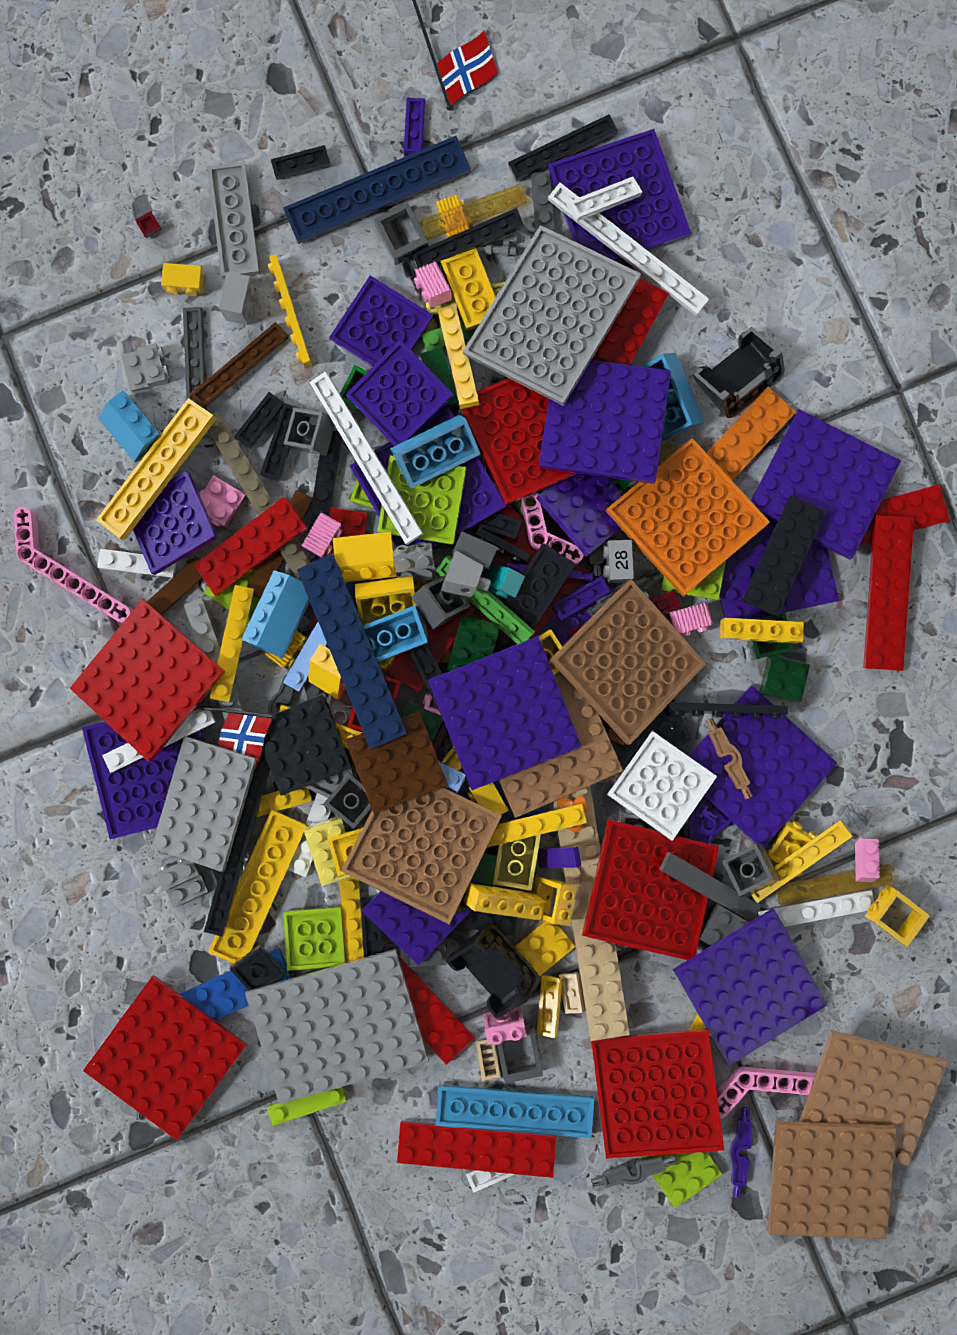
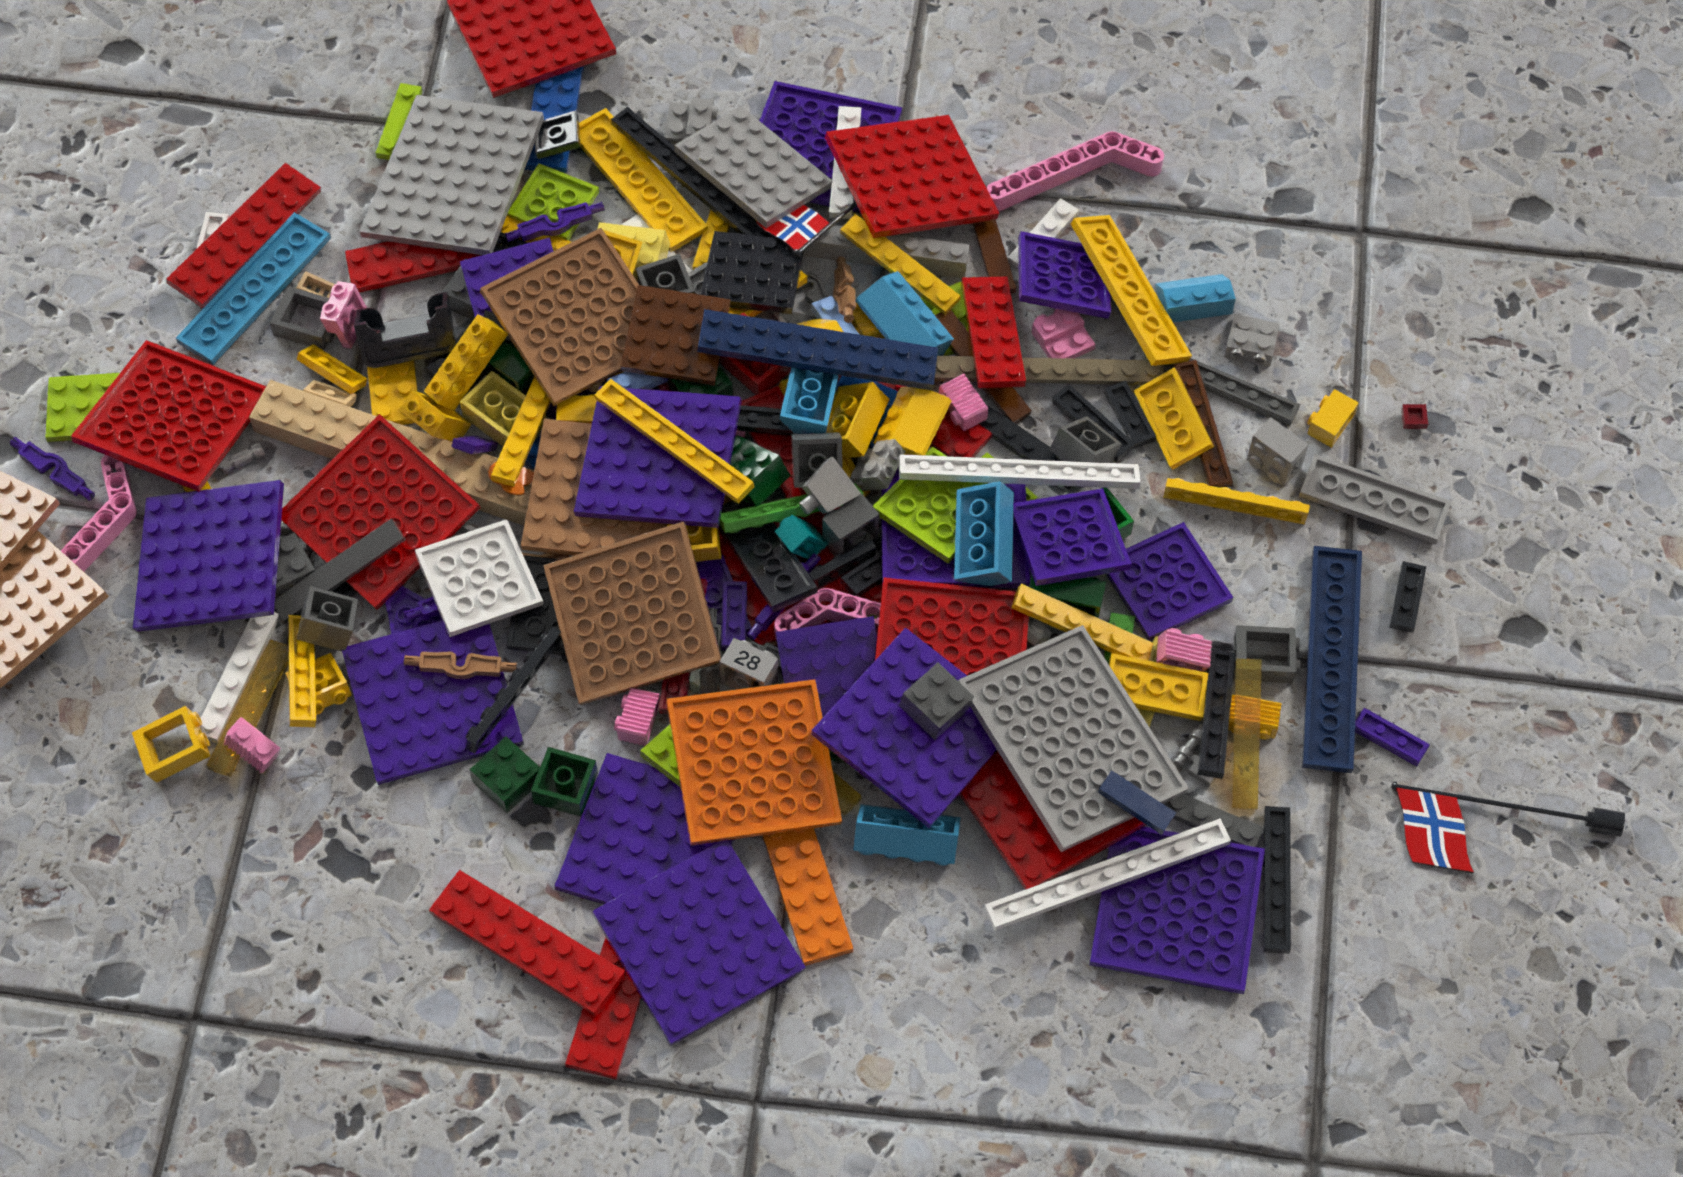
camera: 115 degrees right, 25 degrees down
(248, 385) = (1173, 418): none -> yellow plate
(280, 668) = (843, 291): none -> medium nougat piece
(342, 931) = (543, 226): none -> dark purple piece
(494, 703) = (674, 441): none -> yellow plate
(576, 247) = (1136, 802): none -> dark blue tile
(588, 408) = (936, 701): none -> dark grey brick
(604, 199) = (1182, 874): white plate -> none
(644, 1168) = (108, 365): dark grey piece -> none
(655, 1021) = (241, 458): none -> light grey axle
(742, 374) = (884, 919): black windscreen -> none
(761, 630) = (575, 759): yellow brick -> none
(783, 556) = (643, 835): black plate -> none

